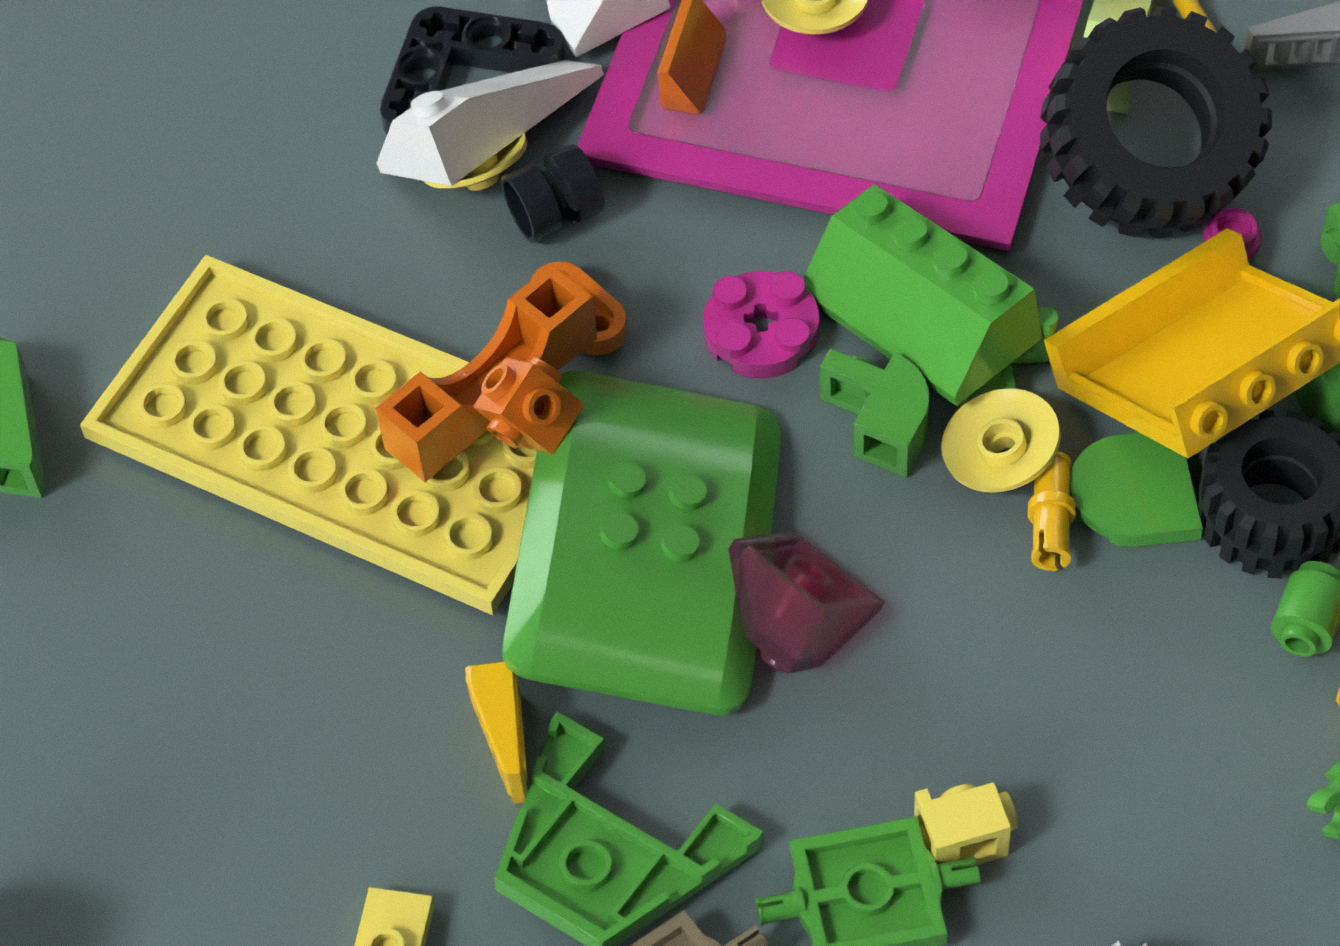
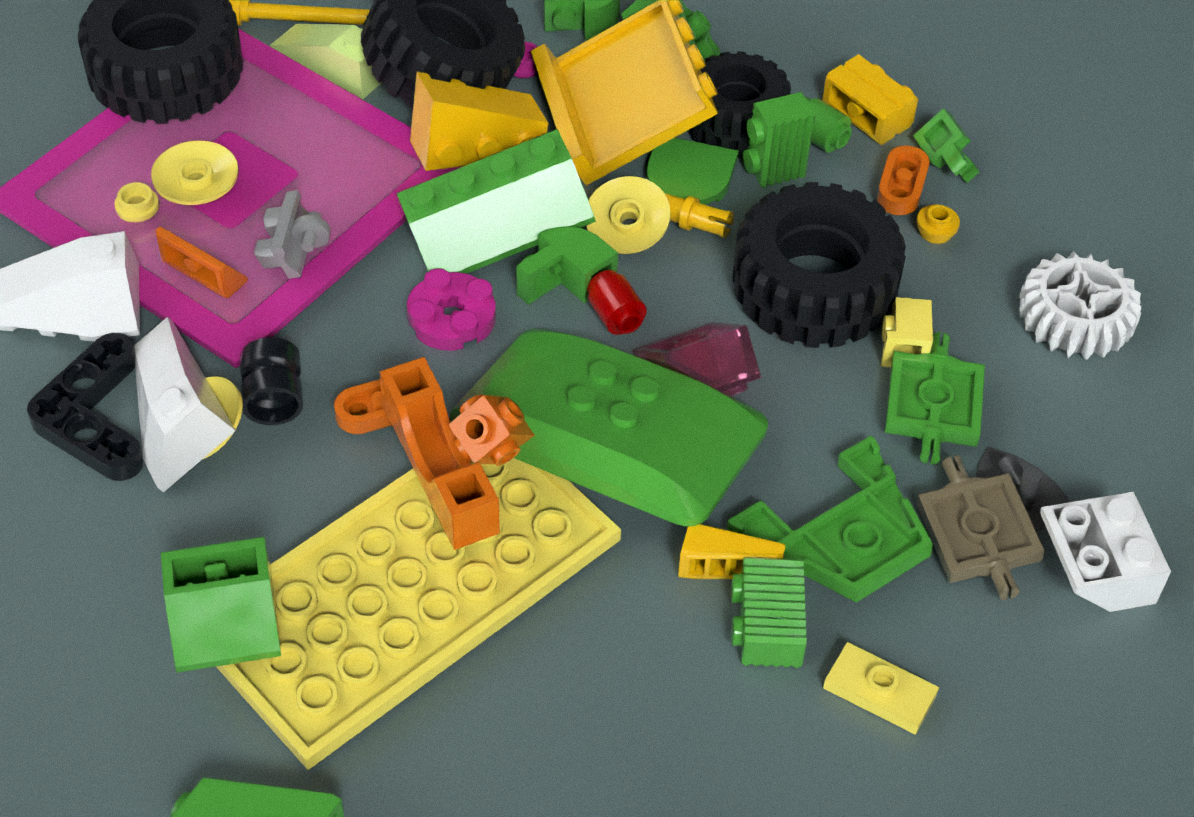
camera: 75 degrees left, 5 degrees down
(211, 265) = (220, 604): none -> bright green slope
(440, 797) = (771, 612): none -> bright green brick
(767, 118) = (293, 234): none -> light grey hips
(848, 481) = (616, 302): none -> red brick
(1027, 607) = (808, 303): none -> black tyre
(1044, 220) = (468, 123): none -> yellow wedge
(1203, 828) = (937, 223): none -> yellow plate
(1221, 557) = (779, 139): none -> bright green brick
(1259, 741) = (903, 180): none -> orange plate

